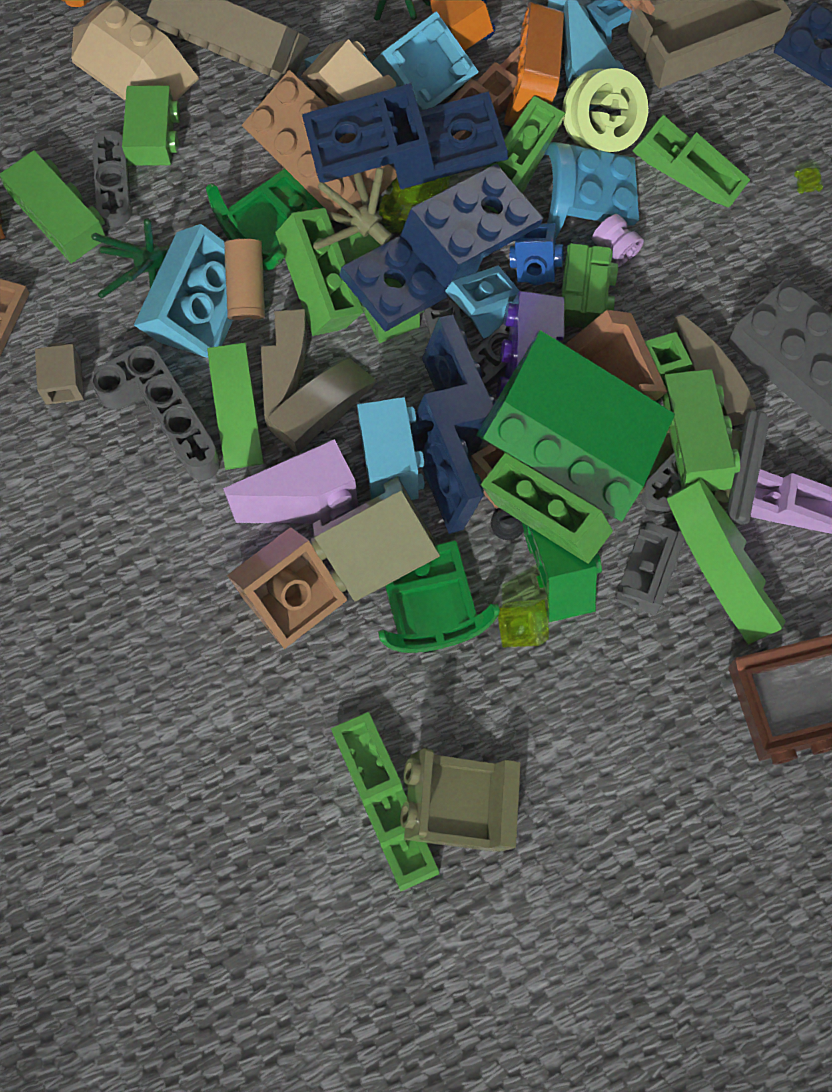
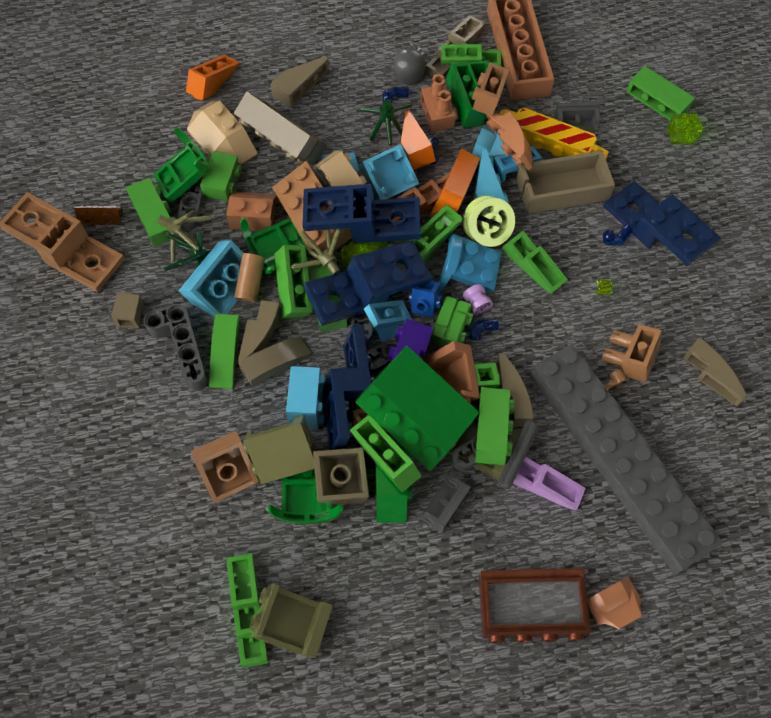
camera: 10 degrees right, 5 degrees down
(84, 125) = (182, 169): none -> green piece
(101, 221) = (175, 227): none -> olive plant
(217, 162) = (255, 207): none -> nougat slope
(297, 490) = (243, 409): lavender slope -> none
(481, 561) = (341, 476): none -> dark tan slope
(523, 623) = (360, 519): clear neon green slope -> none
(633, 280) = (482, 325): none -> clear blue arm
(723, 561) = (488, 509): bright green slope -> none
(811, 99) = (612, 239): none -> clear blue arm

